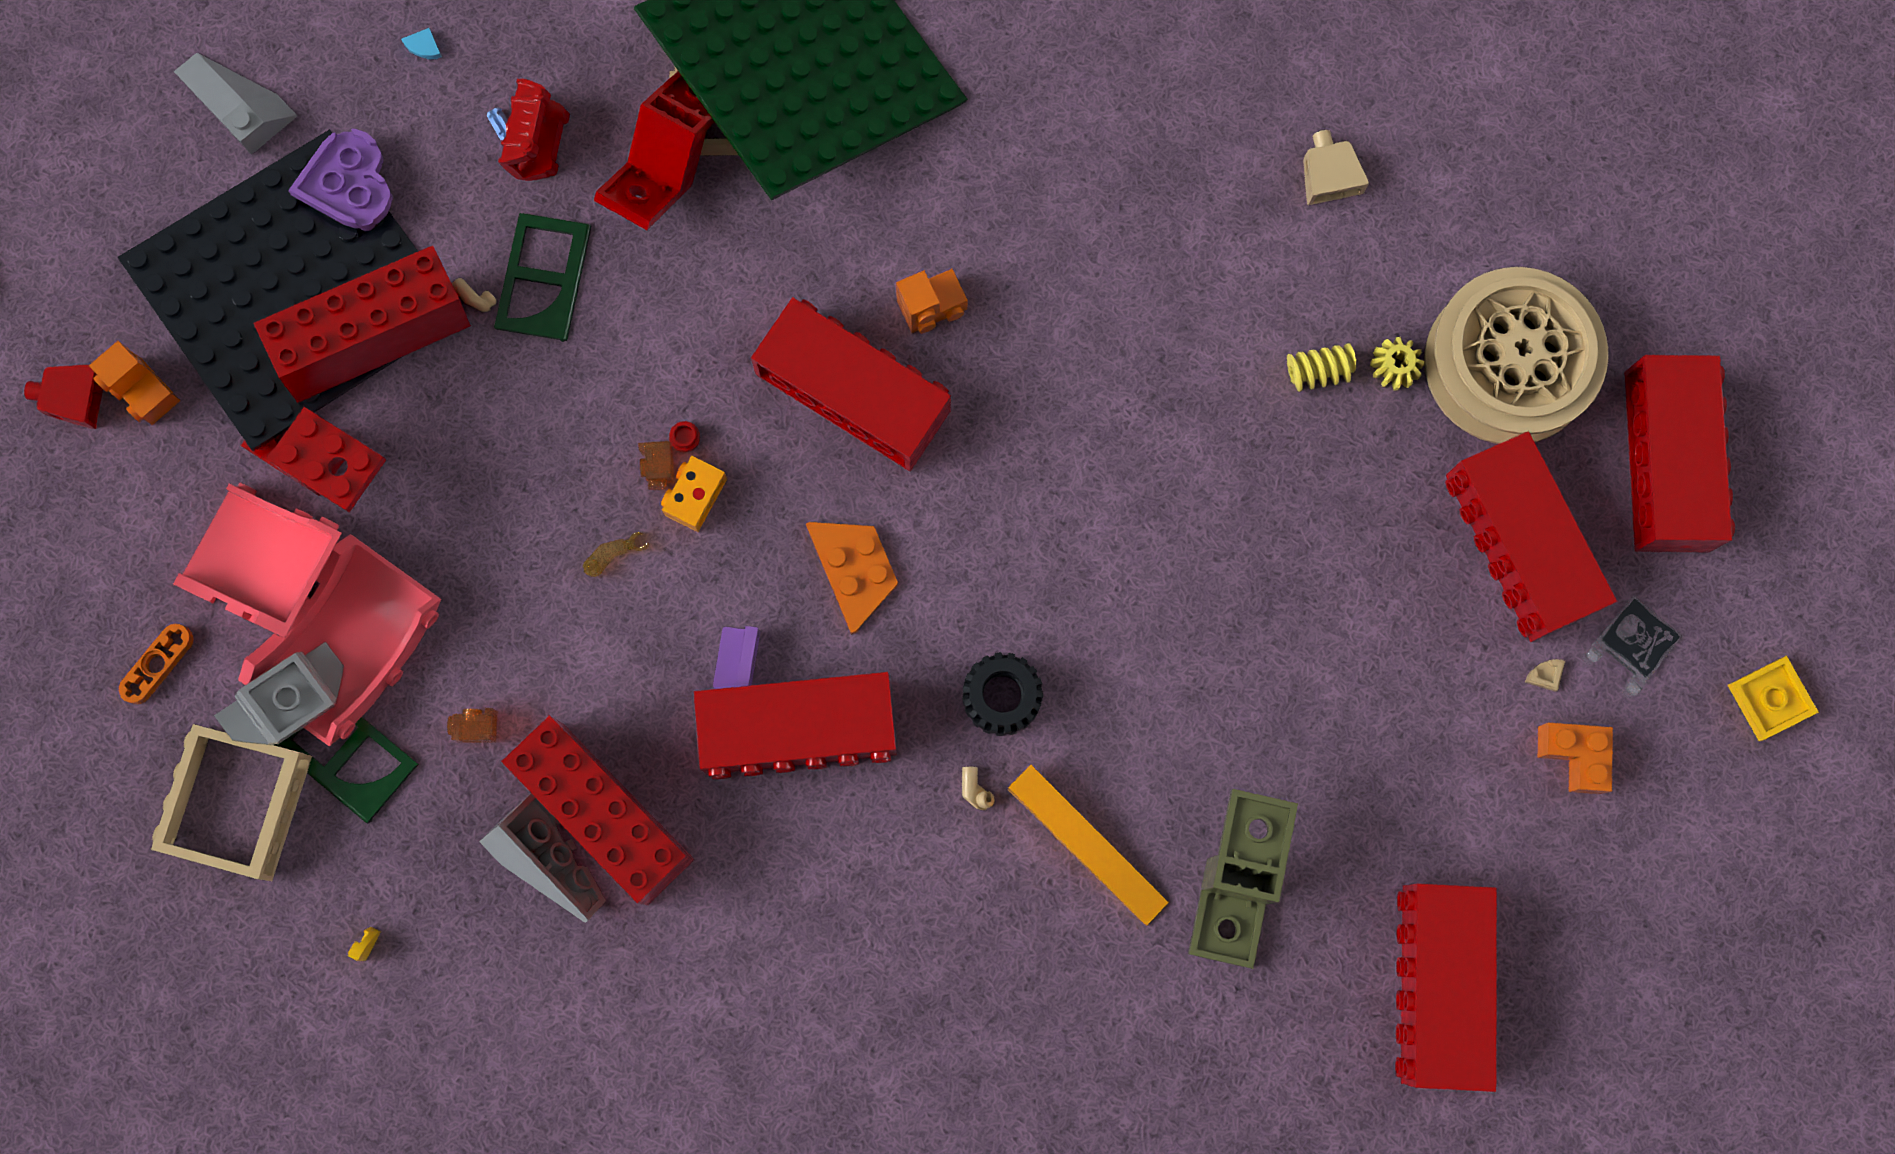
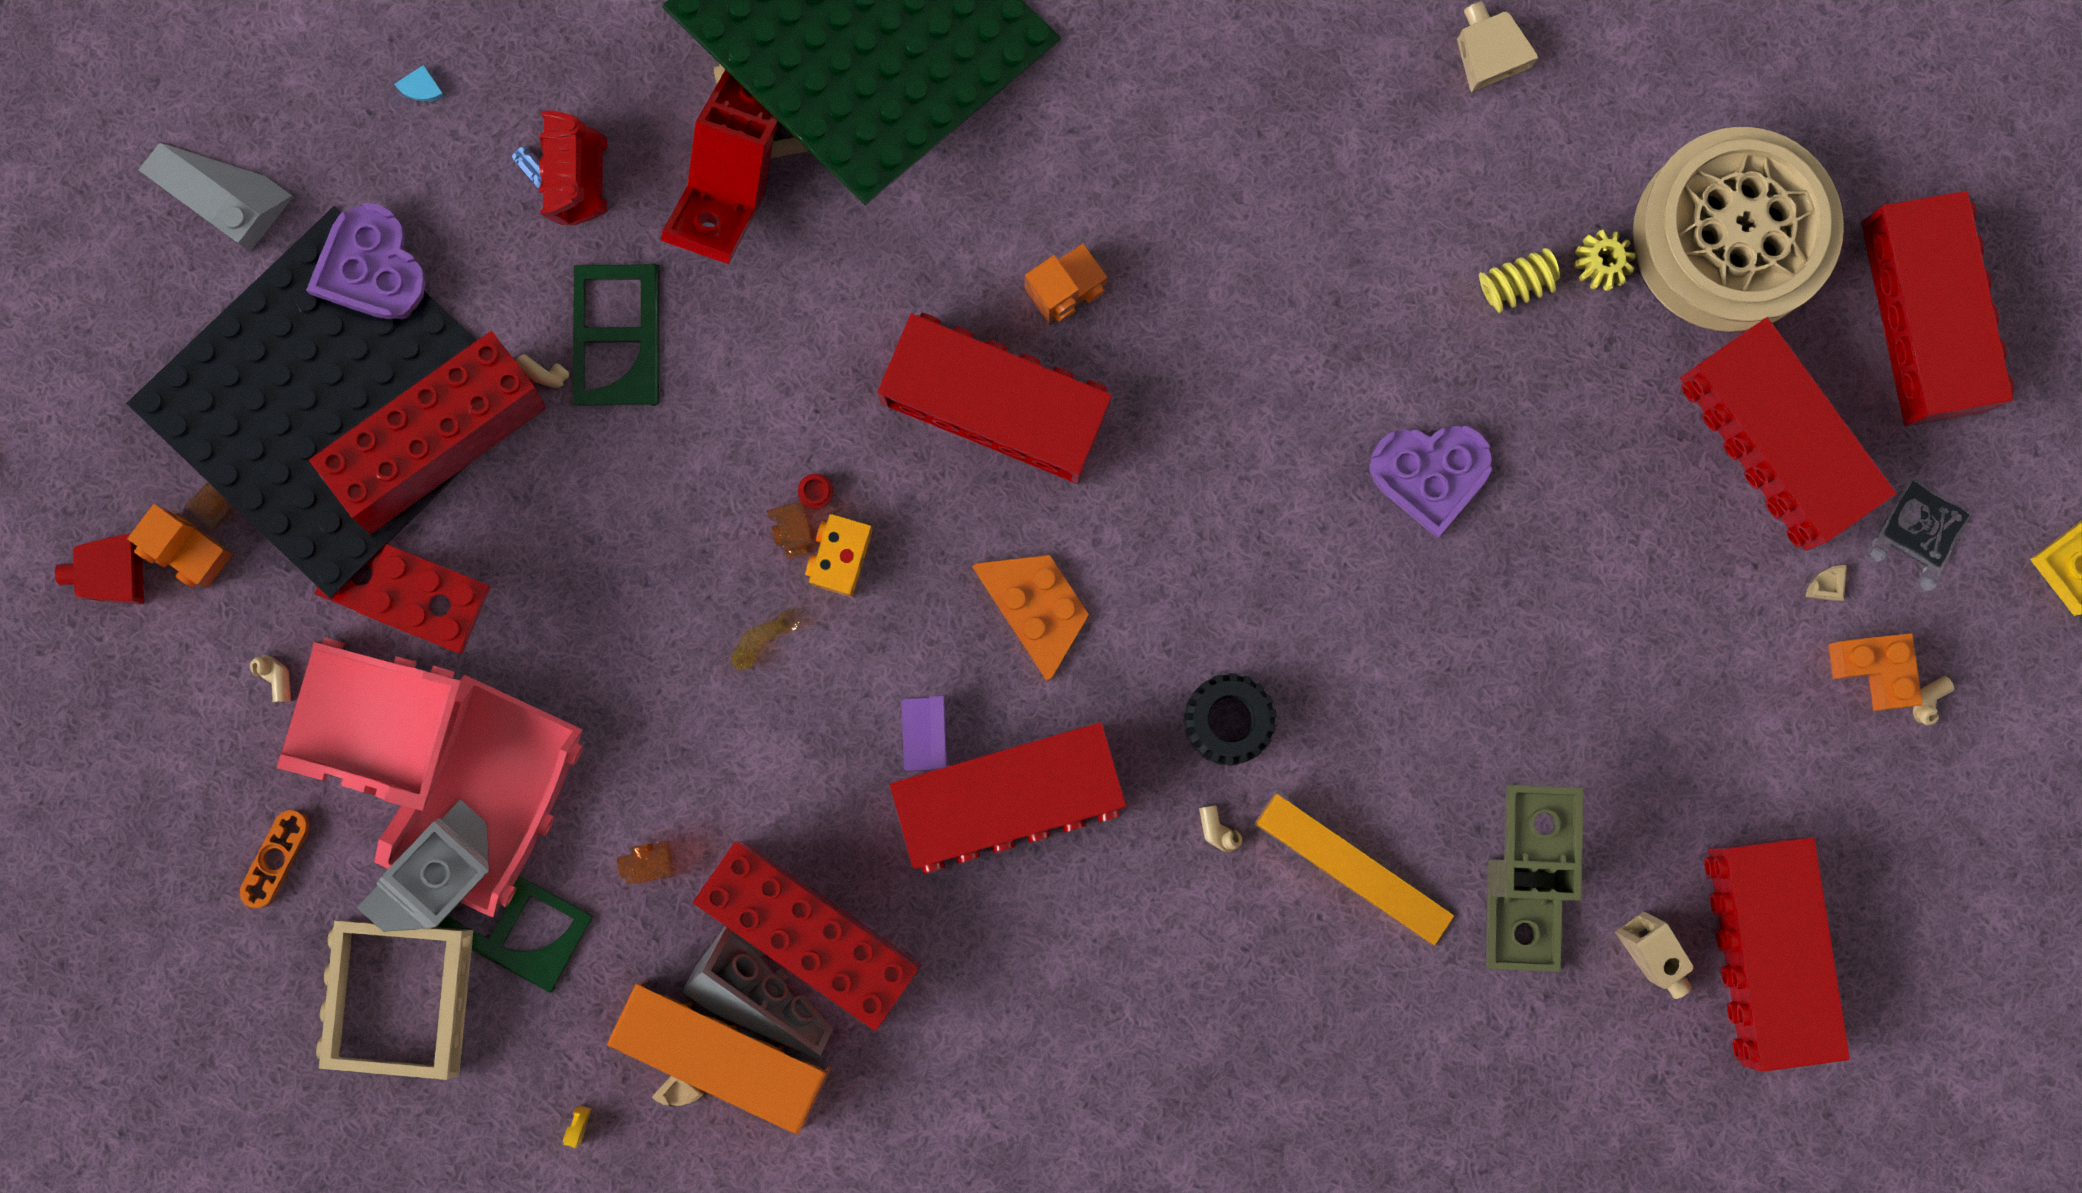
camera: 10 degrees left, 5 degrees up
(169, 357) = (210, 506): none -> clear orange plate
(192, 507) = (274, 673): none -> tan arm
(459, 929) = (677, 1093): none -> tan tile
(498, 905) = (717, 1058): none -> orange piece
(1216, 517) = (1431, 474): none -> medium lavender plate
(1337, 963) = (1653, 952): none -> tan torso
(1615, 799) = (1930, 694): none -> tan arm

